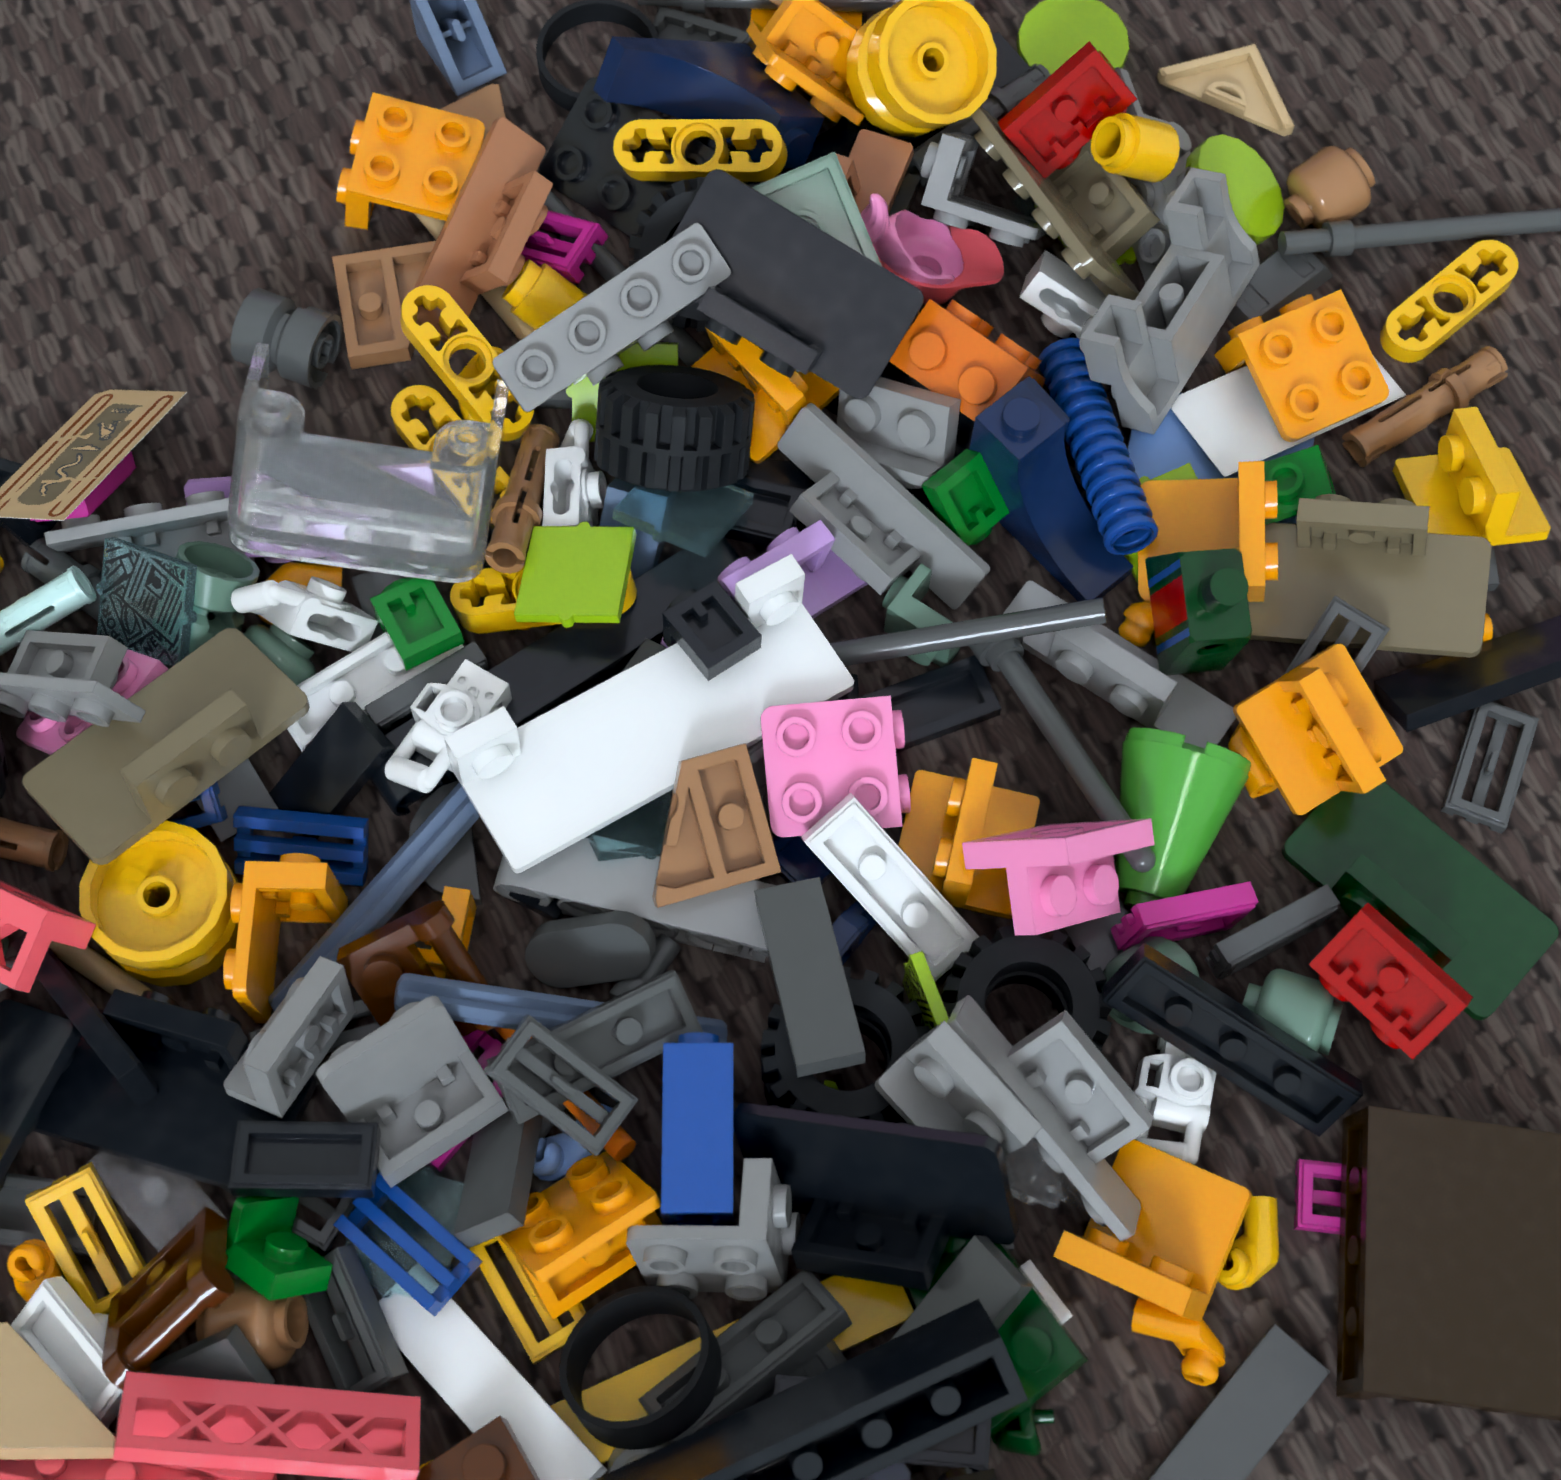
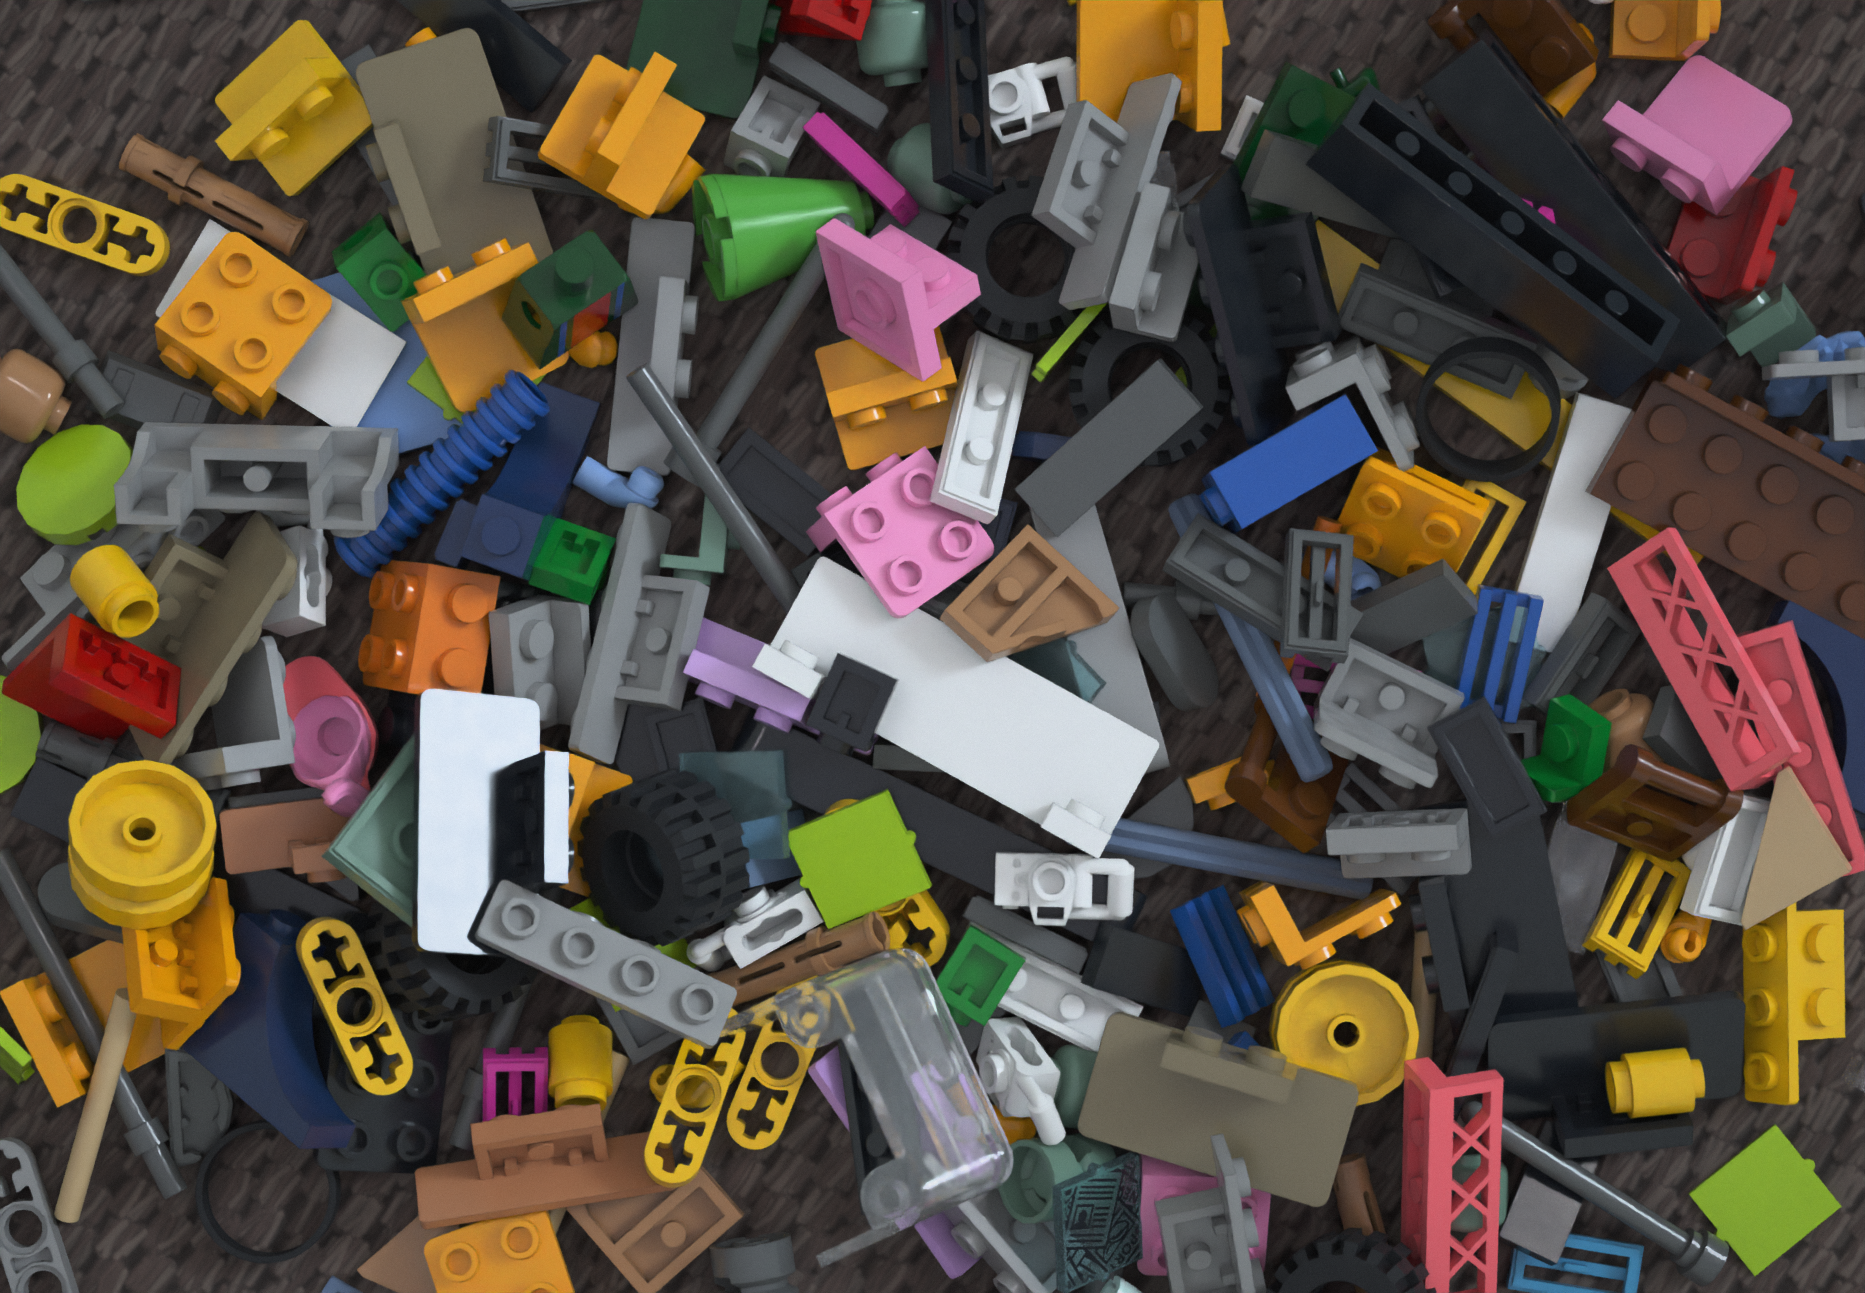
camera: 115 degrees left, 20 degrees up
(1000, 585) = (616, 488): none -> light blue arm
(1263, 854) = (769, 130): none -> light grey bracket

